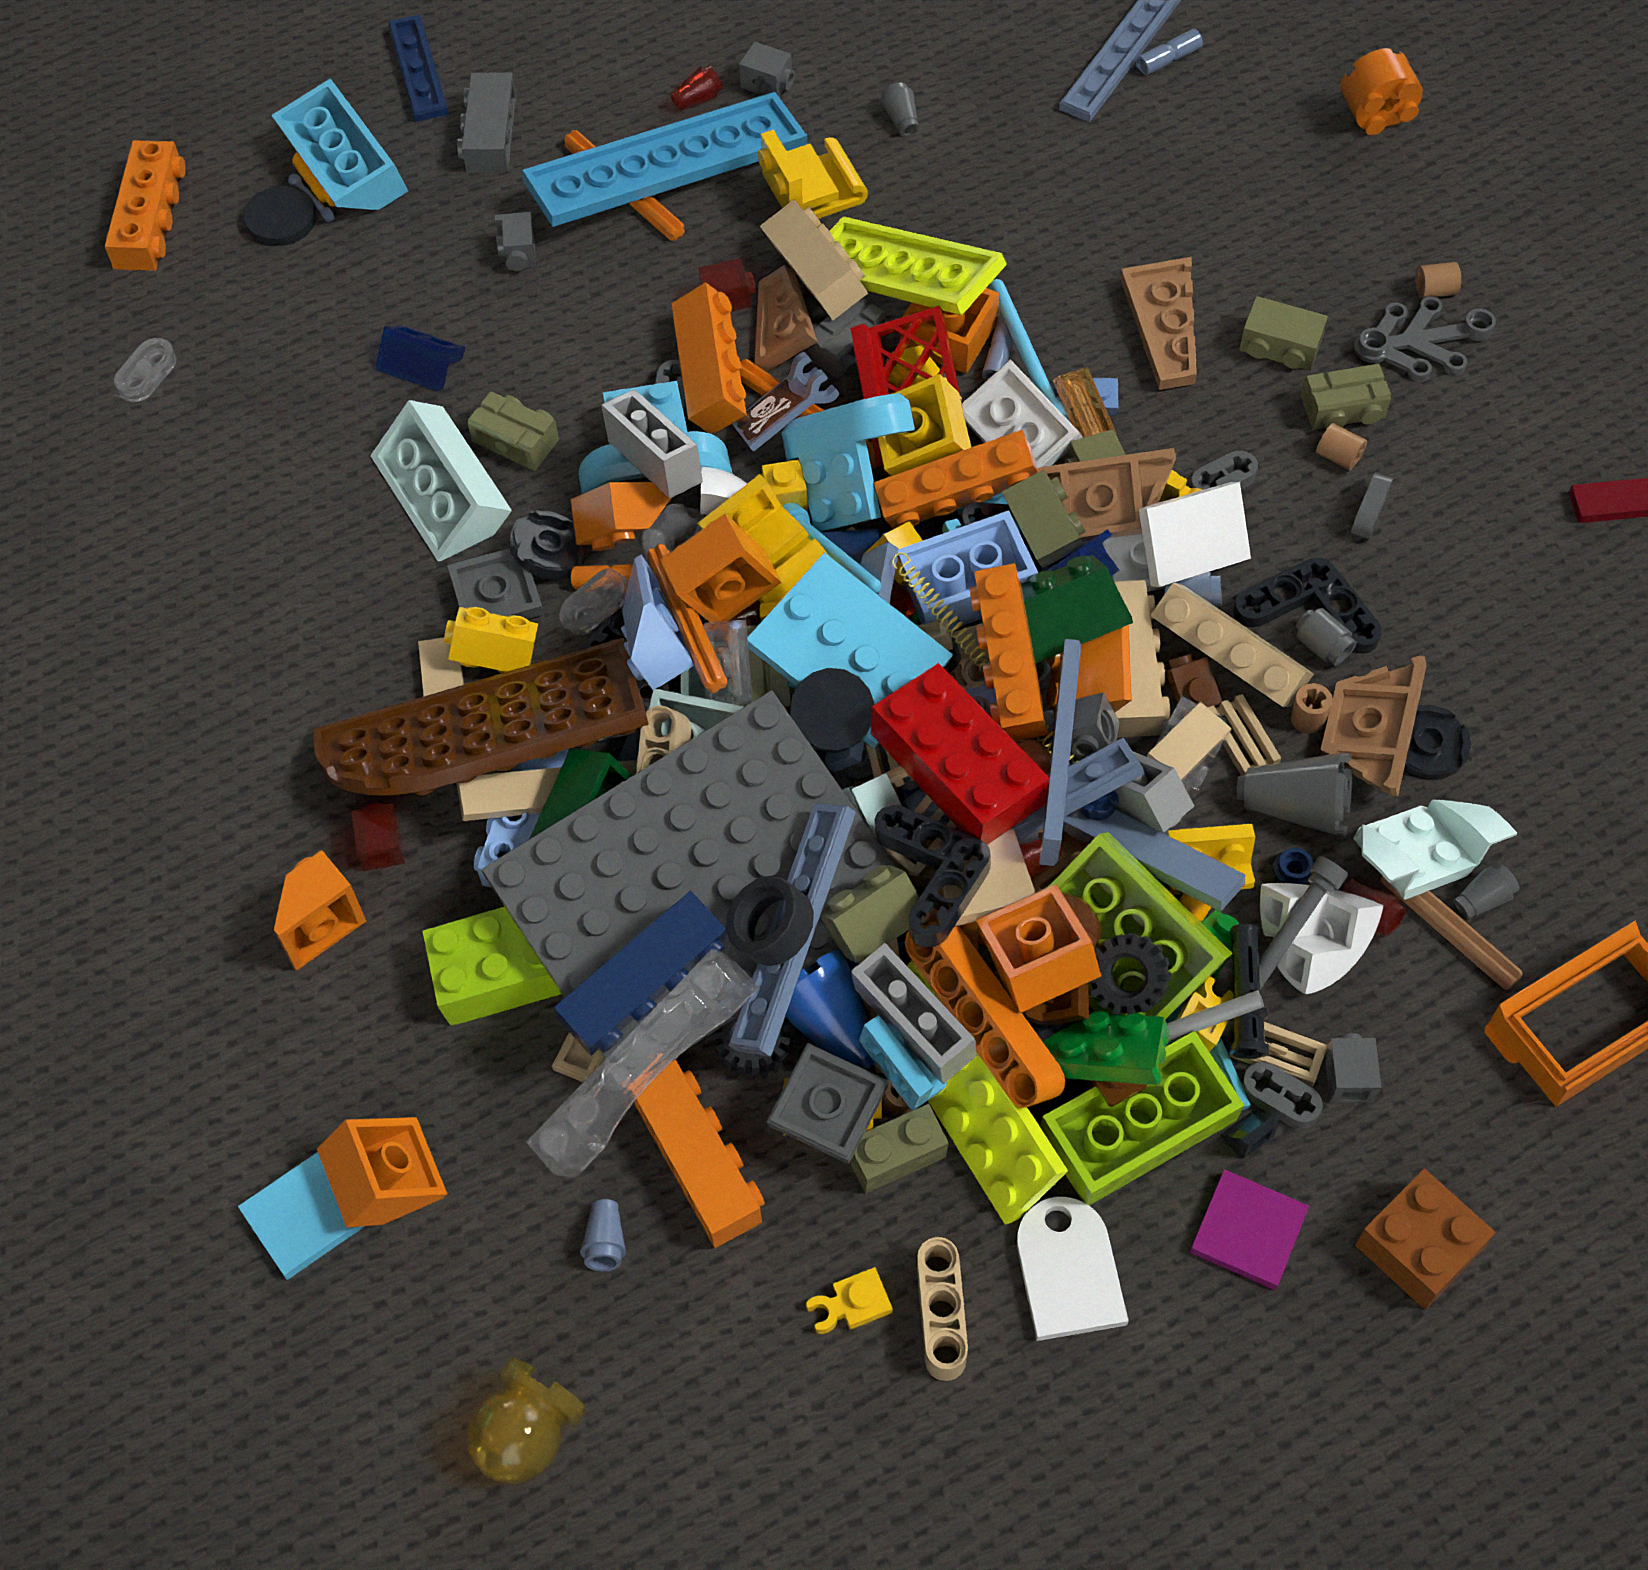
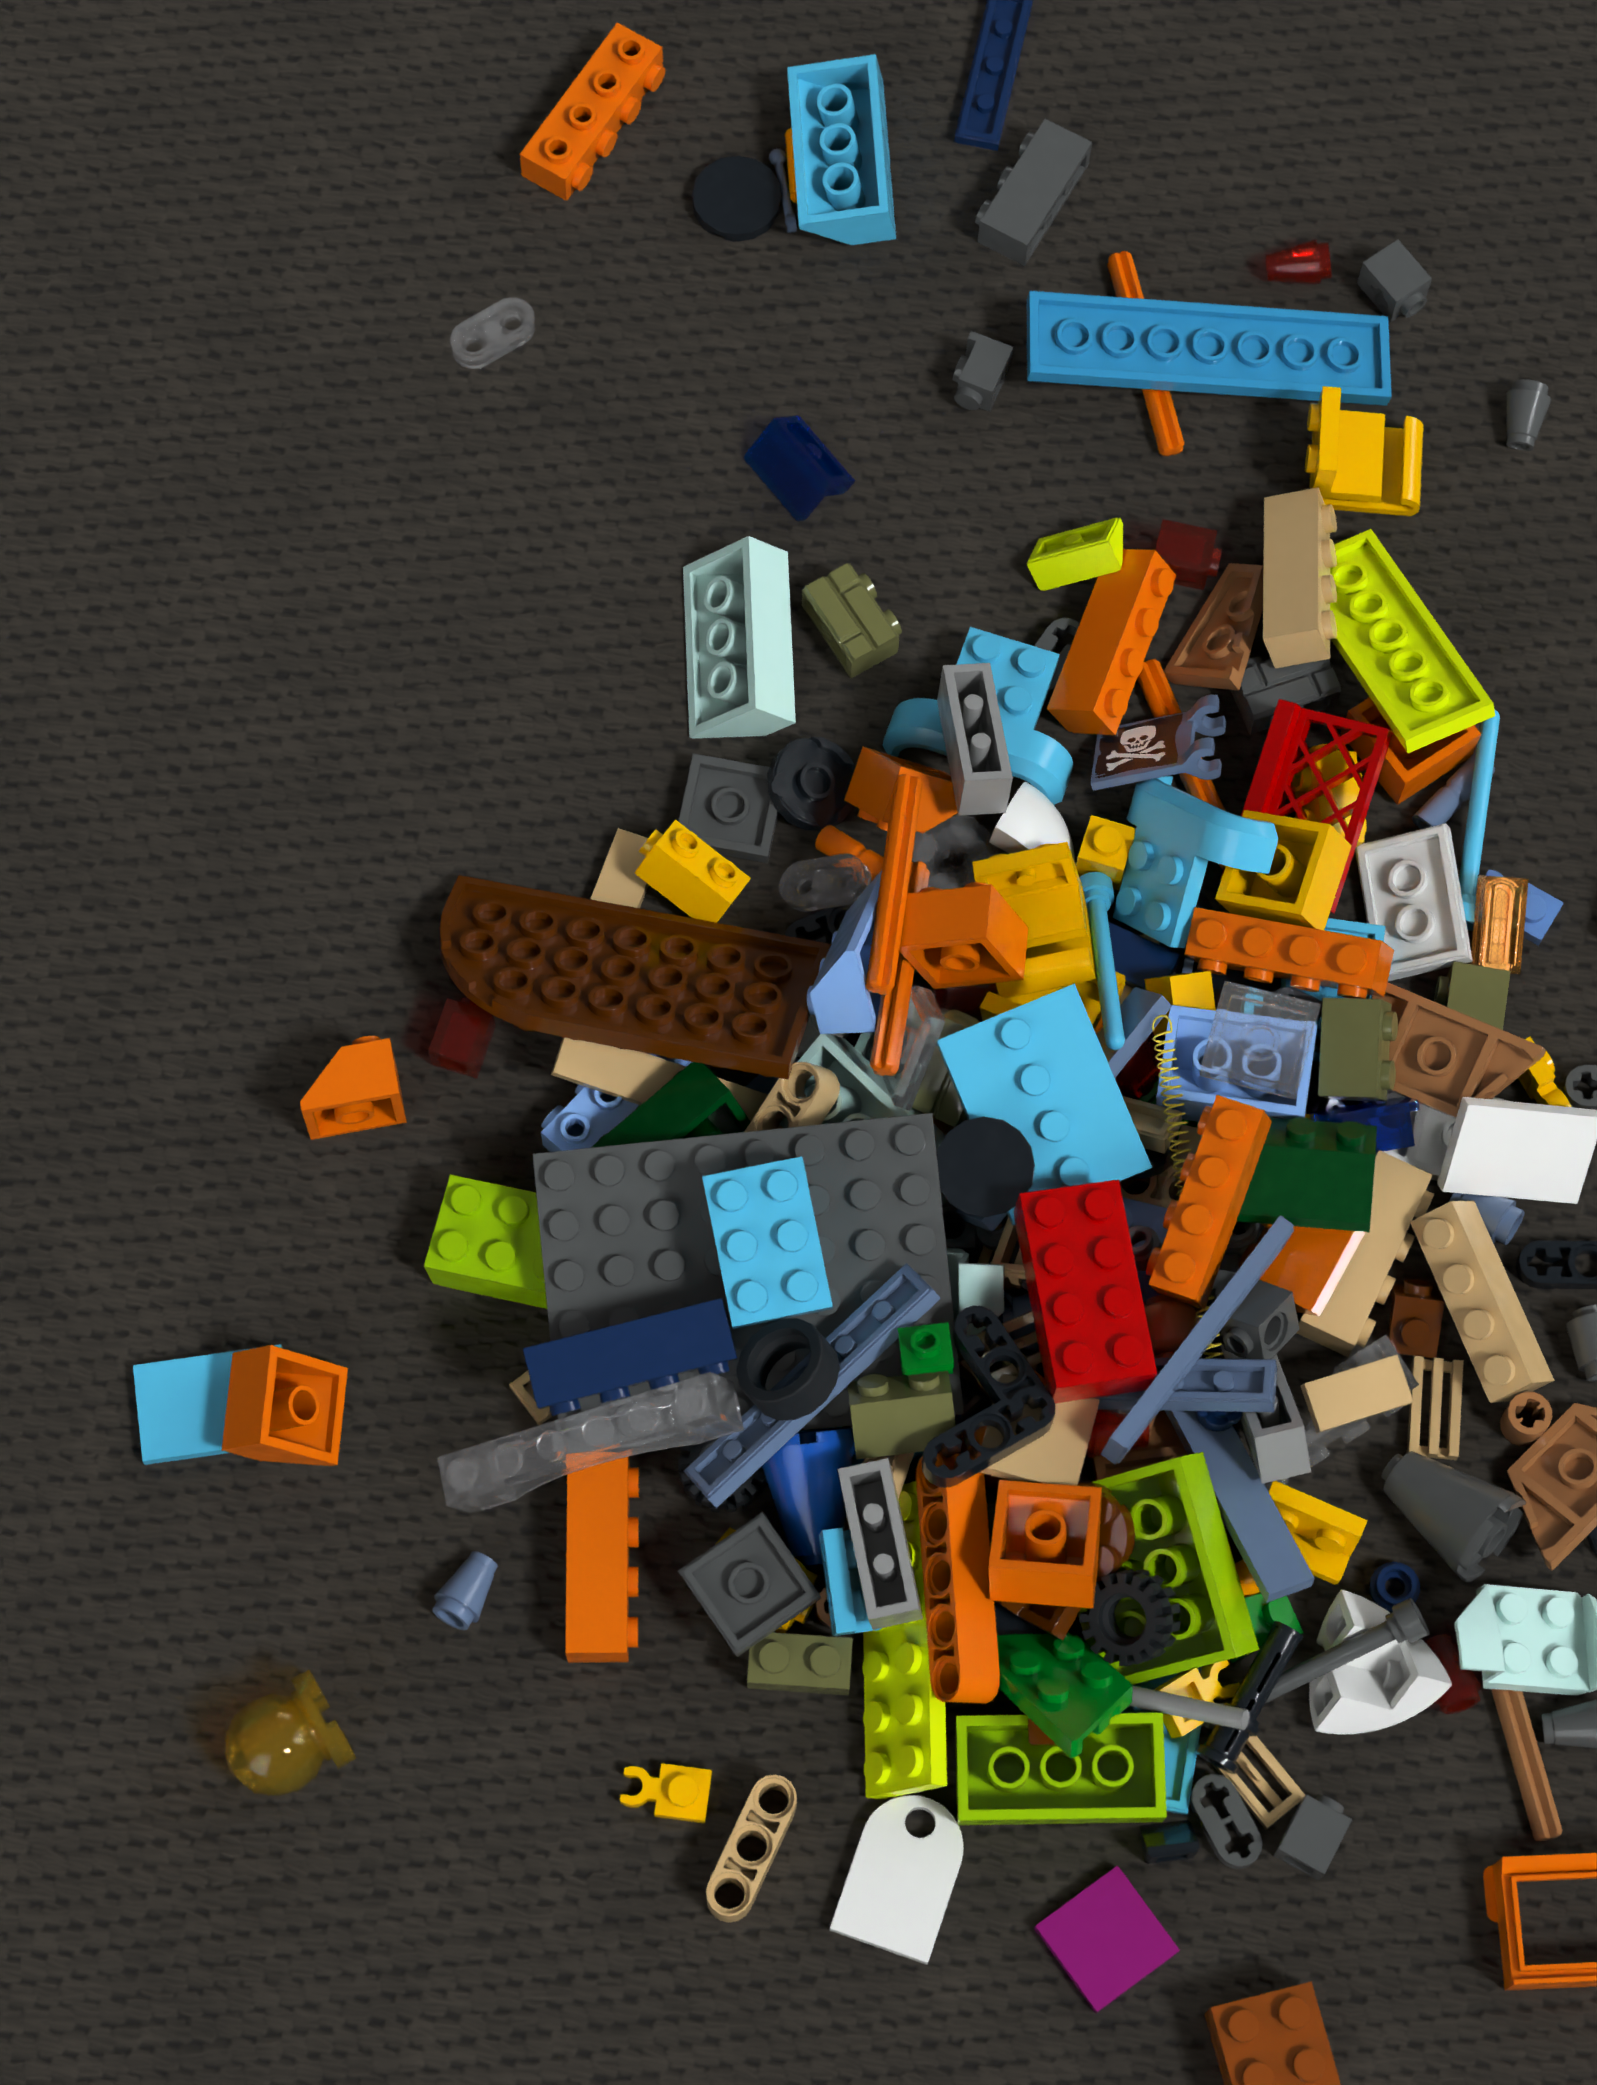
camera: 25 degrees right, 10 degrees up
(651, 557) = (894, 885): none -> orange axle
(652, 317) = (1077, 554): none -> neon yellow slope
(701, 835) = (767, 1242): none -> medium azure brick
(865, 852) = (925, 1349): none -> green bracket
(975, 536) = (1260, 1040): none -> clear tile

